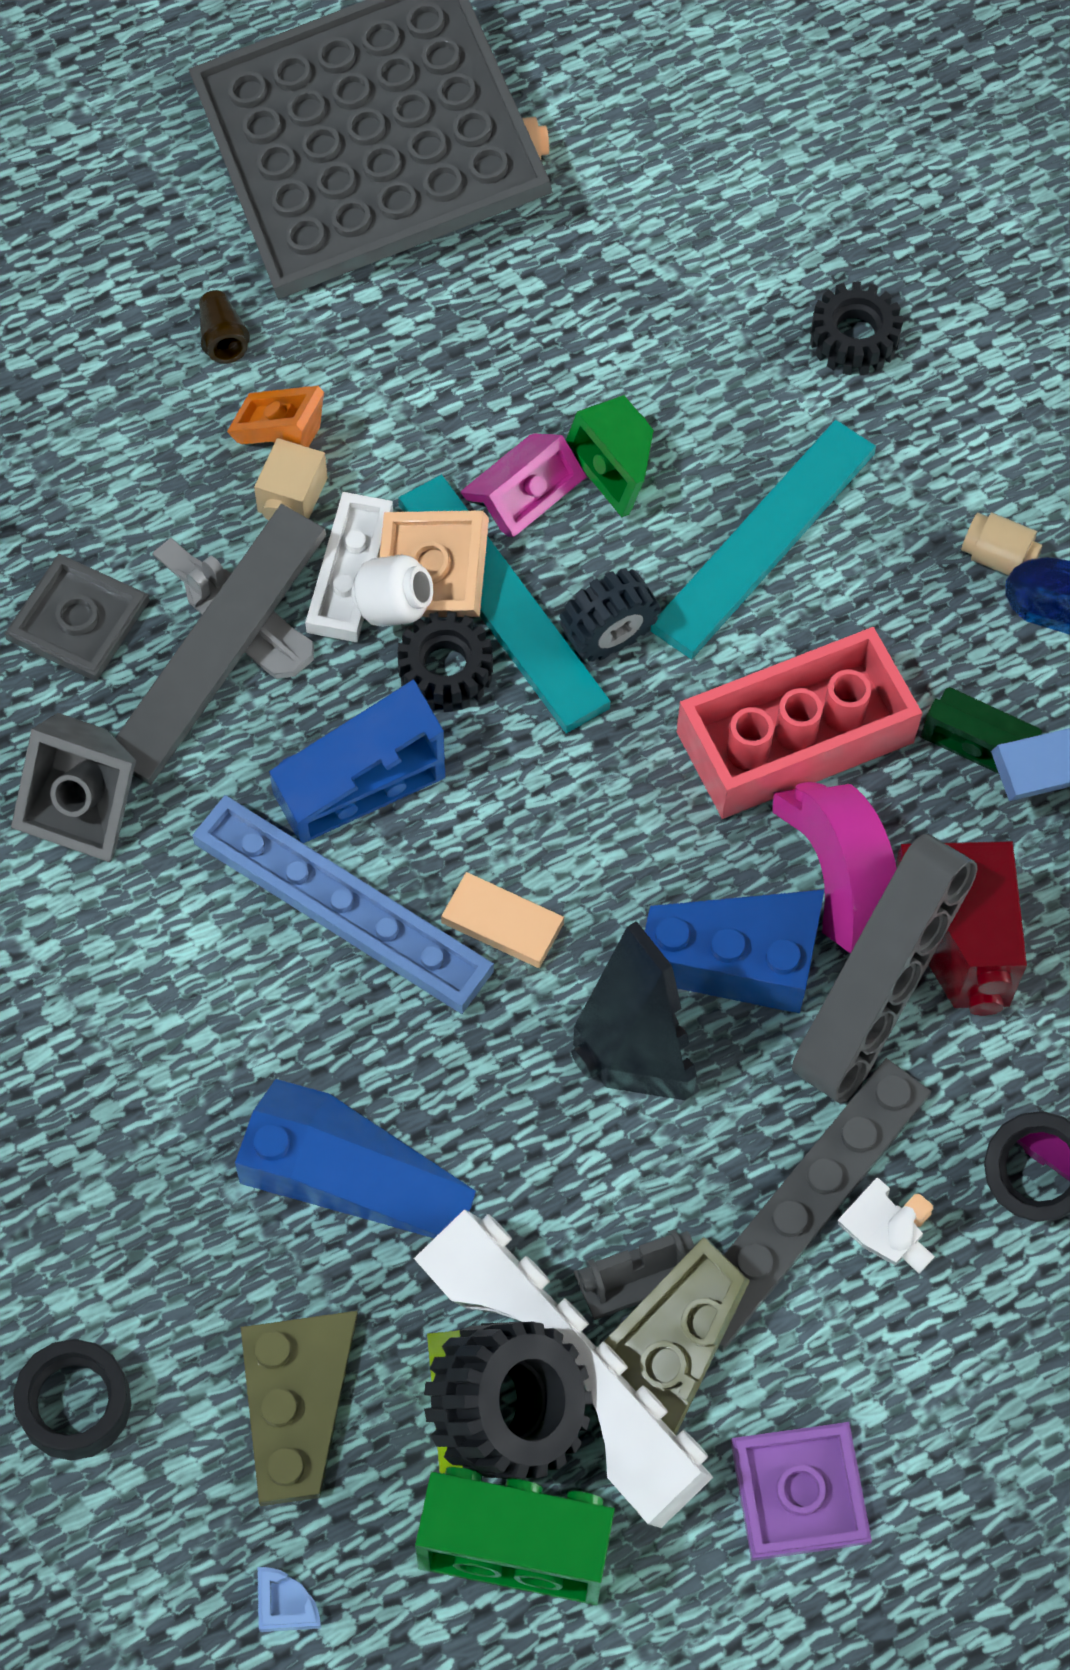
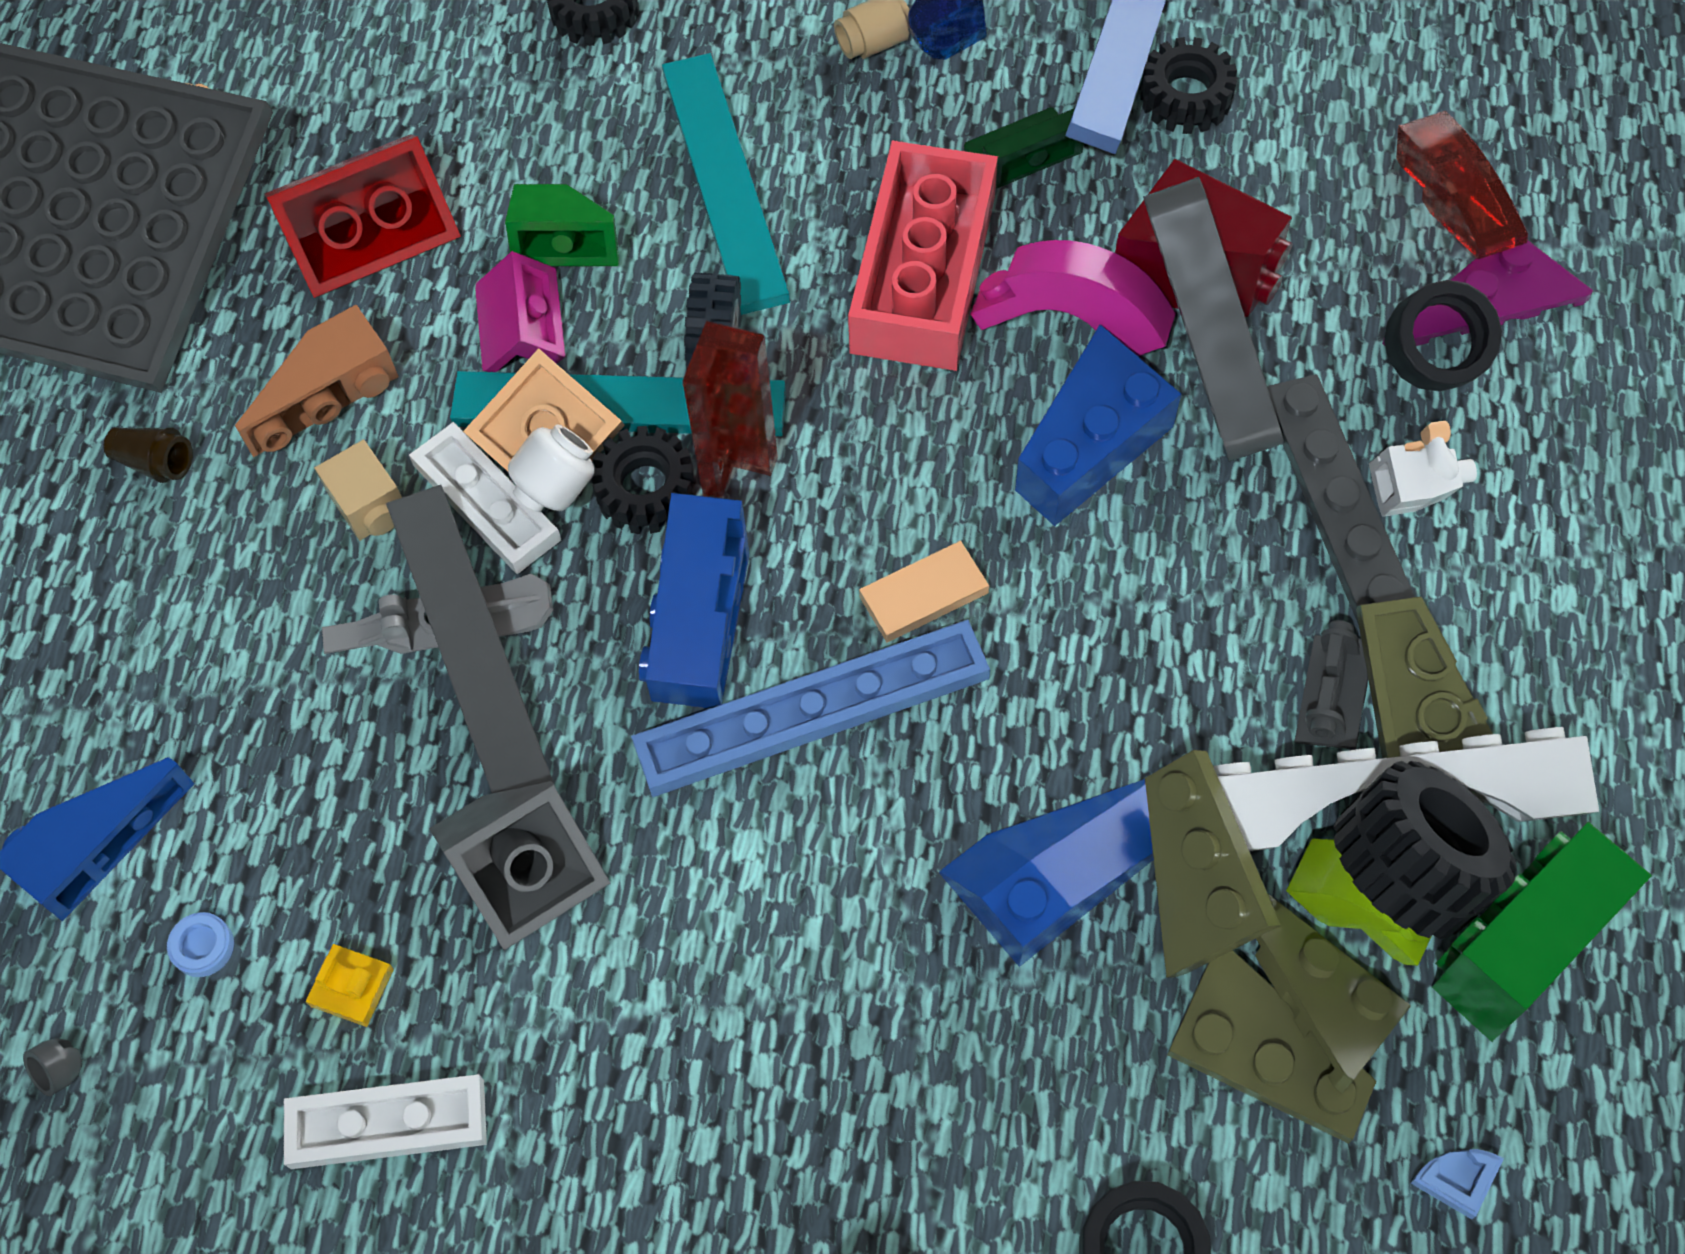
camera: 50 degrees left, 0 degrees up
(77, 617) = (334, 756): dark grey tile -> none
(280, 414) = (287, 457): orange slope -> none
(366, 389) = (318, 379): none -> nougat slope
(366, 1420) = (1328, 994): none -> olive wing
(393, 1255) = (1202, 867): none -> olive wing
(519, 663) = (730, 406): none -> clear red fence
(524, 314) = (363, 215): none -> red slope
(631, 1026) = (1131, 525): black wedge -> none
(800, 1491) = (1605, 690): medium lavender tile -> none

